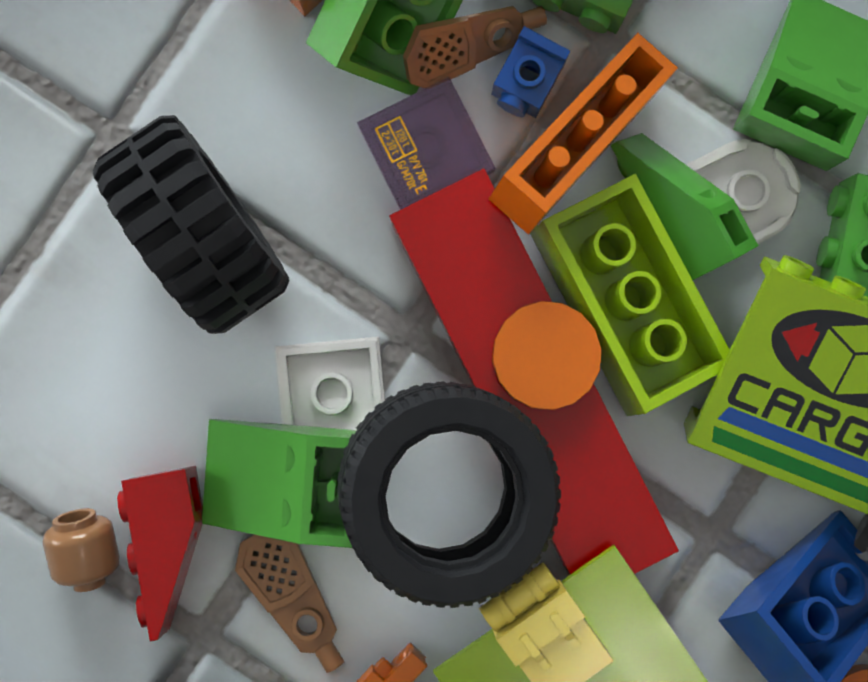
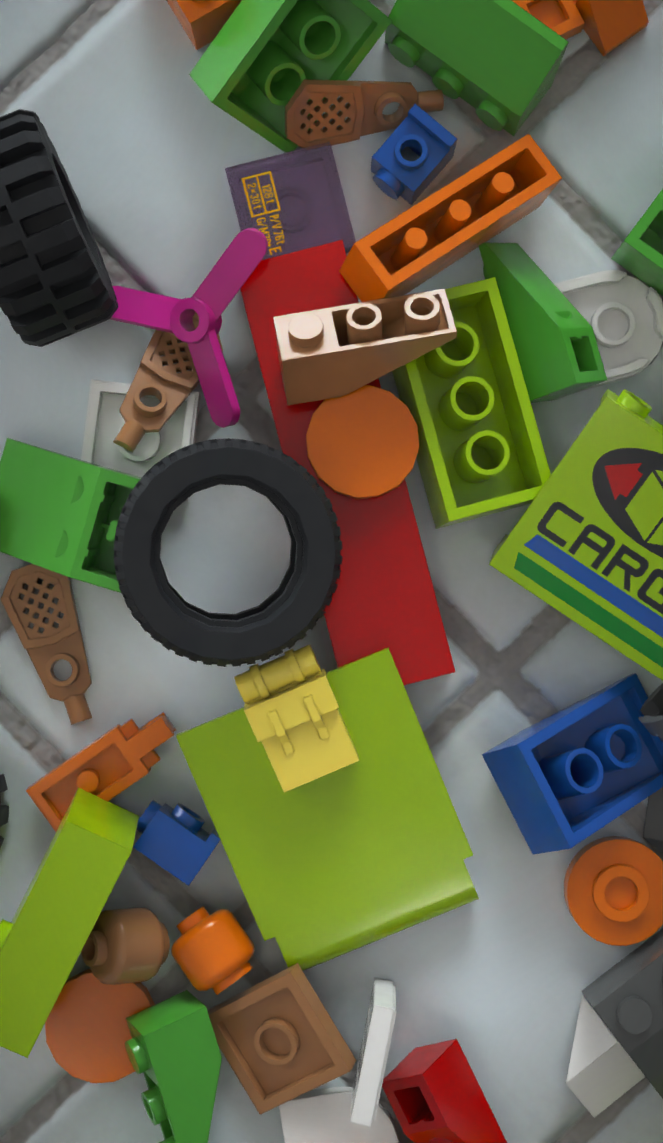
camera: 20 degrees right, 0 degrees up
(344, 334) = (158, 381): none -> medium nougat piece
(372, 254) = (209, 303): none -> dark pink piece
(526, 266) = (350, 345): none -> medium nougat slope

